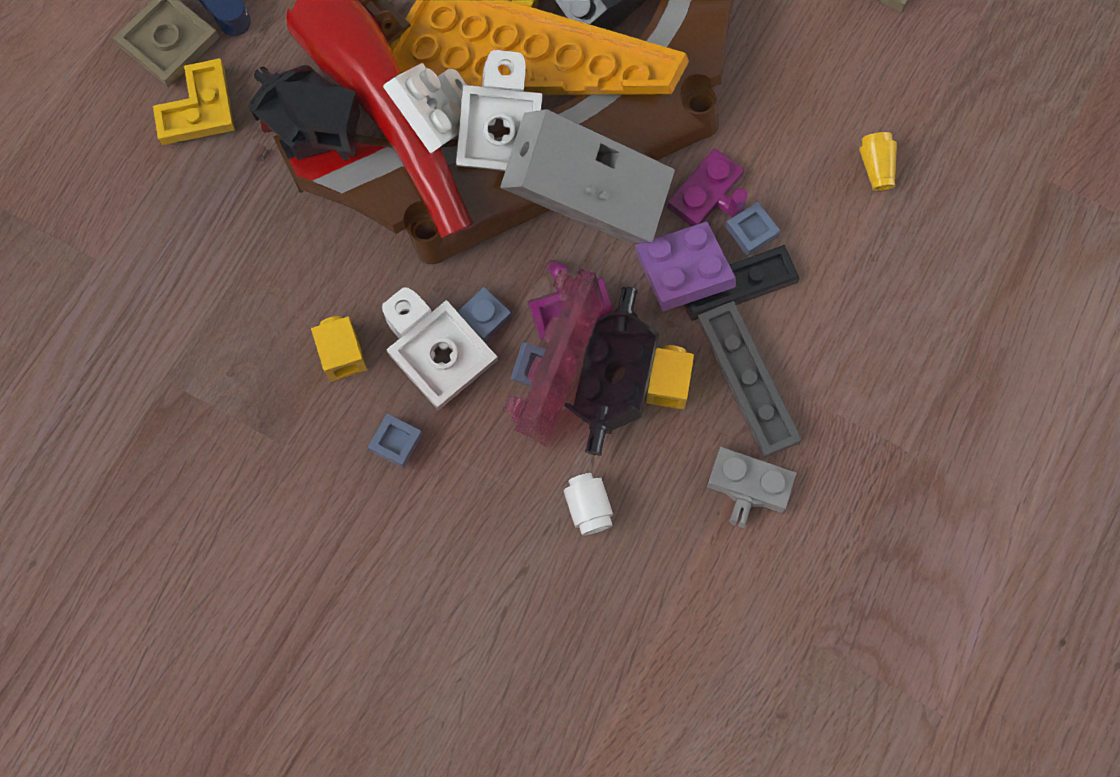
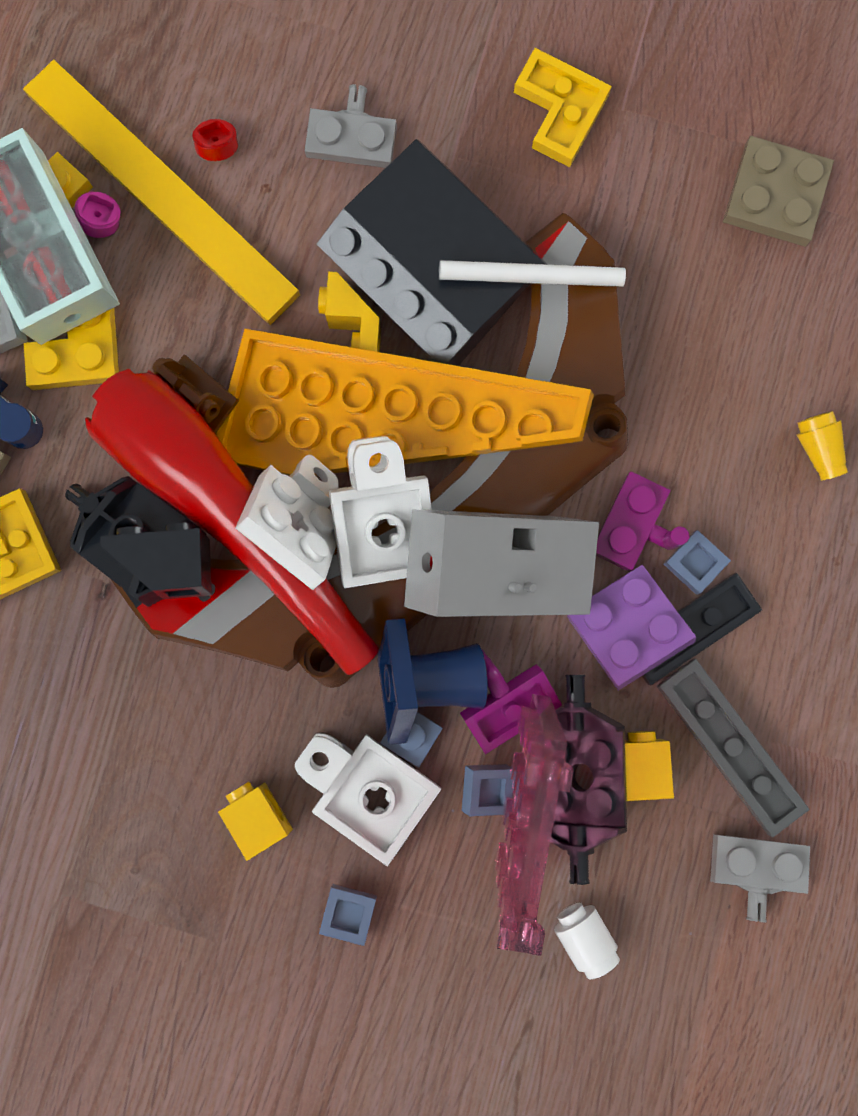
camera: 15 degrees left, 10 degrees up
(505, 261) = (425, 680): none -> dark blue plant

